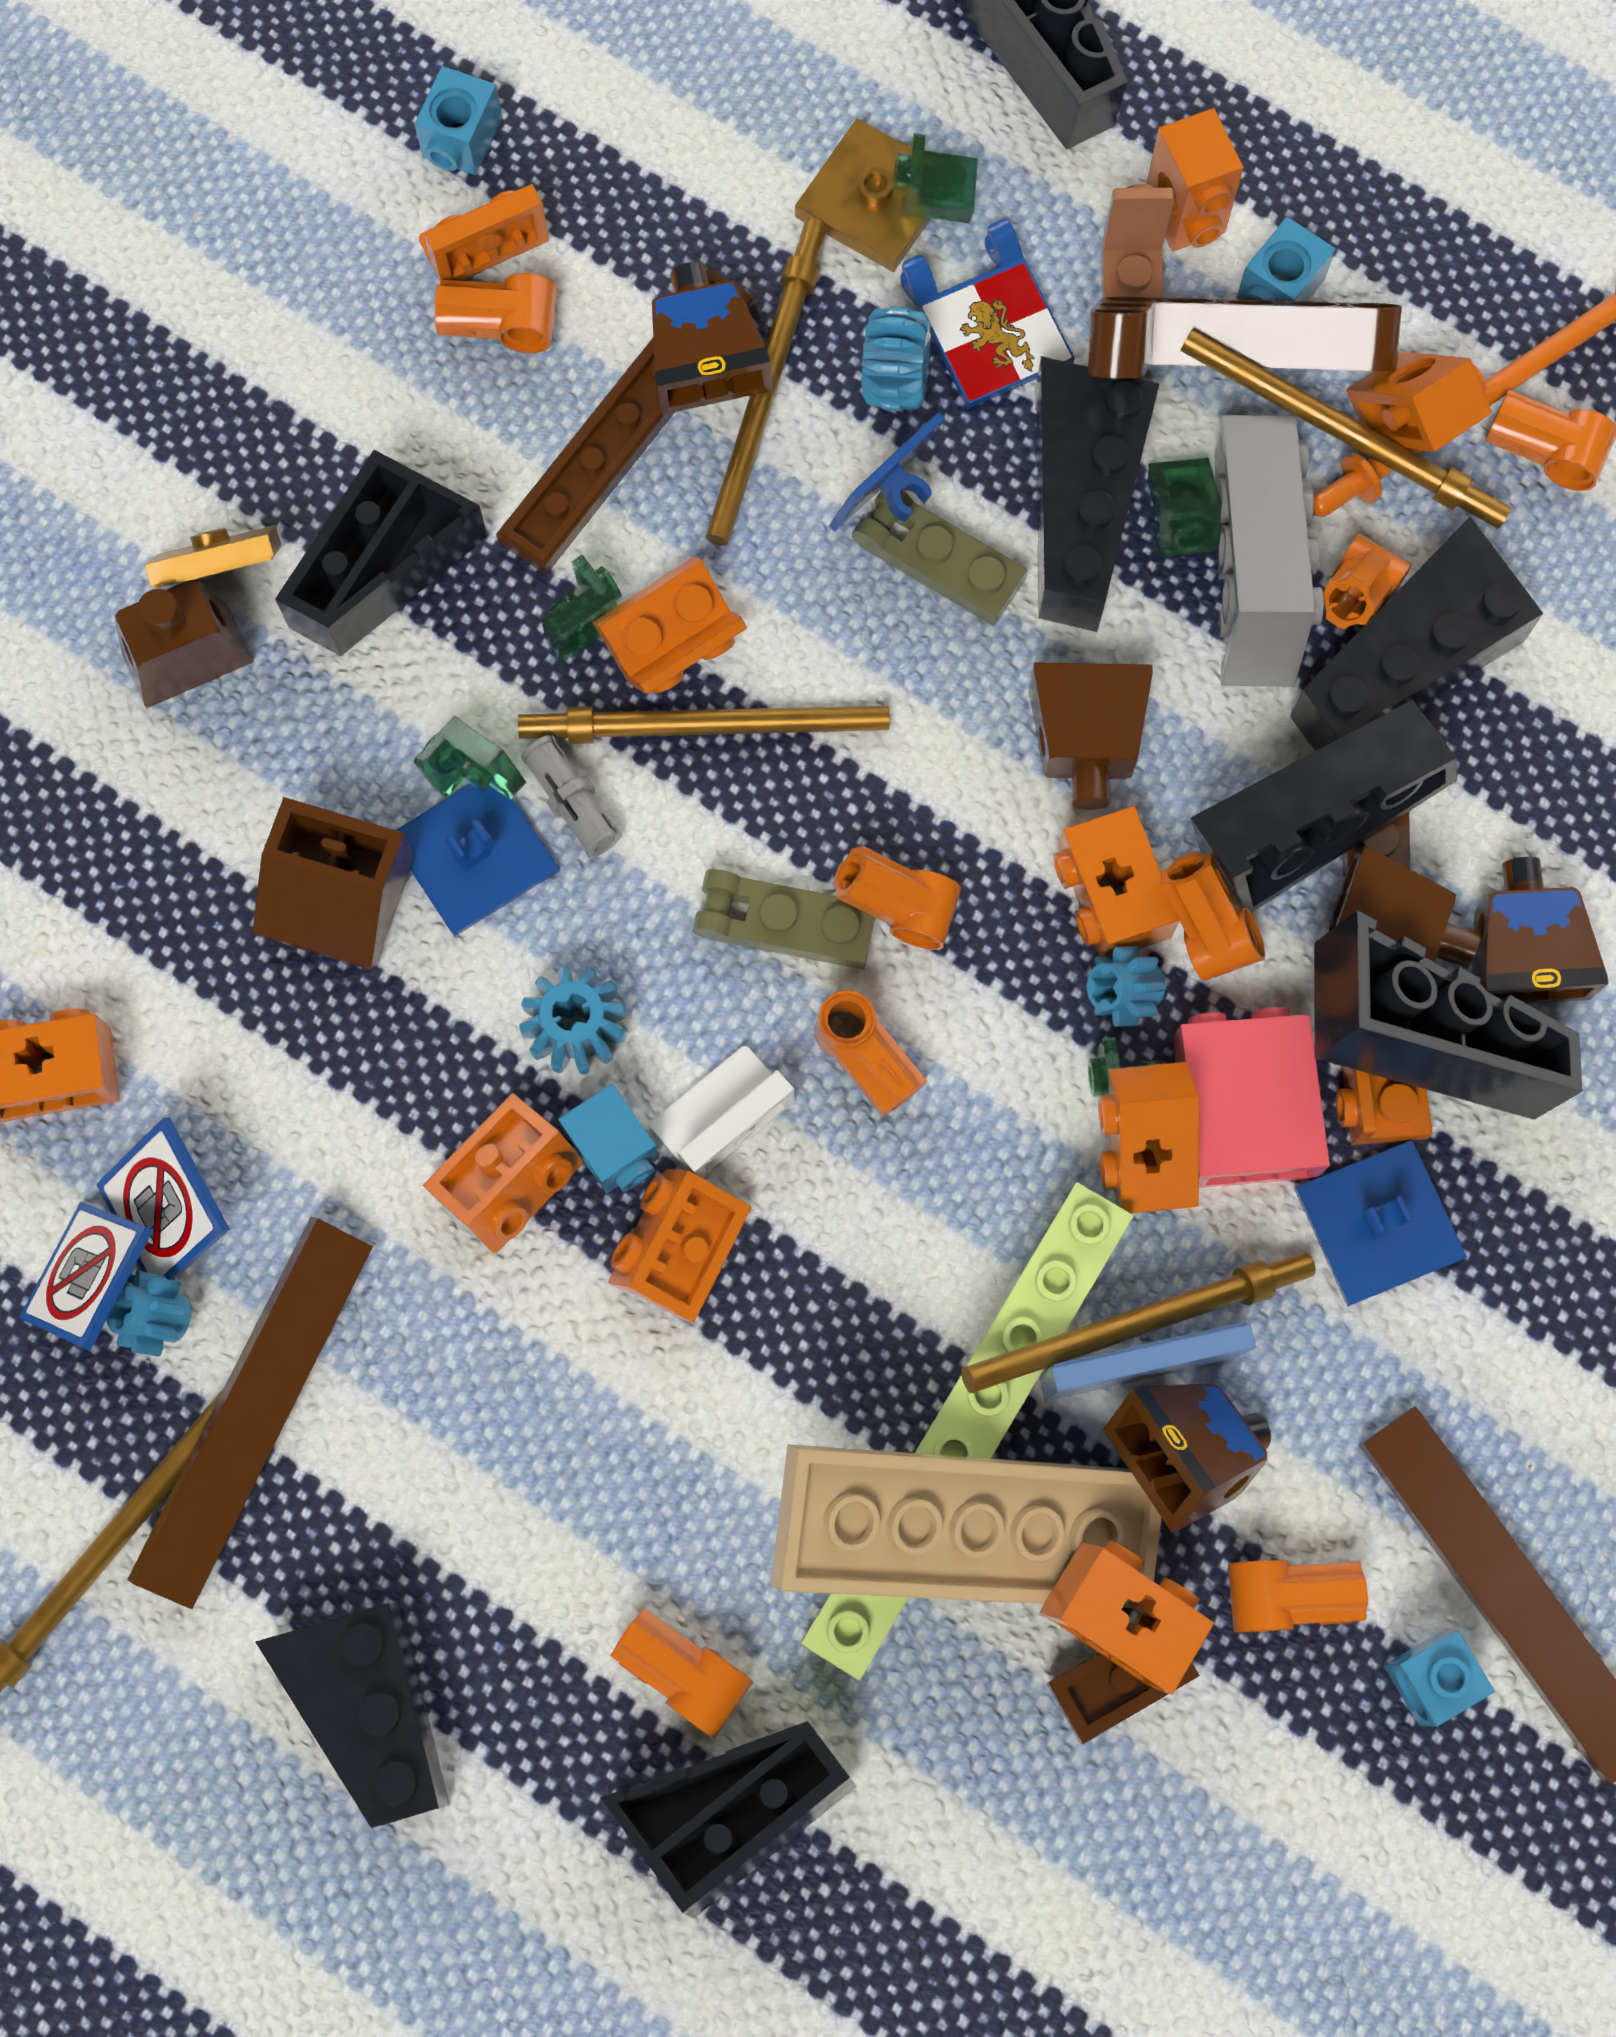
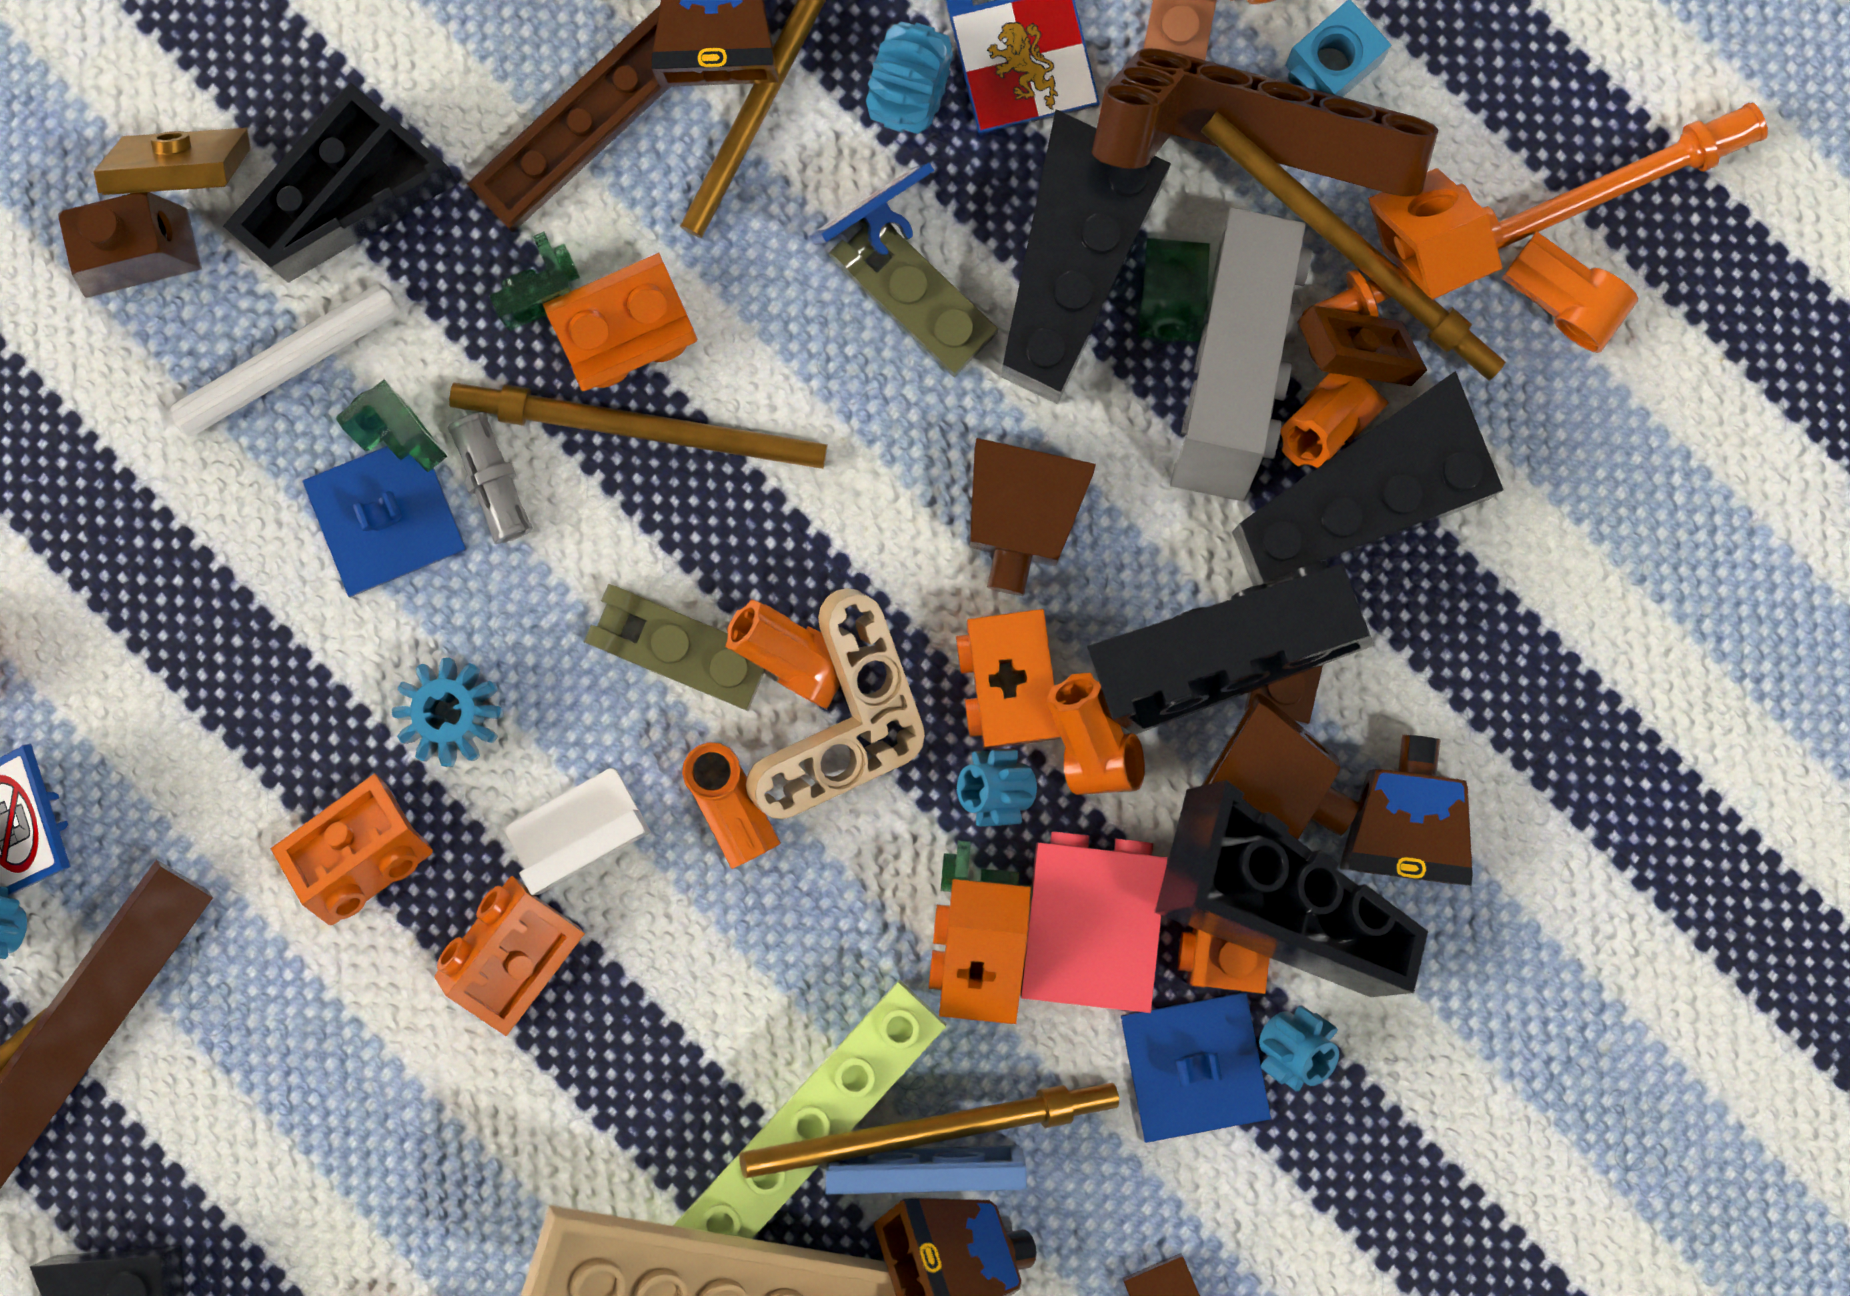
camera: 15 degrees right, 10 degrees up
(330, 883) = (231, 528): reddish brown slope -> none
(350, 726) = (284, 360): none -> white axle
(610, 1140) = (460, 842): dark azure brick -> none
(986, 939) = (868, 719): none -> tan beam
(1374, 514) = (1361, 346): none -> reddish brown plate
(1480, 1176) = (1299, 1048): none -> dark azure gear

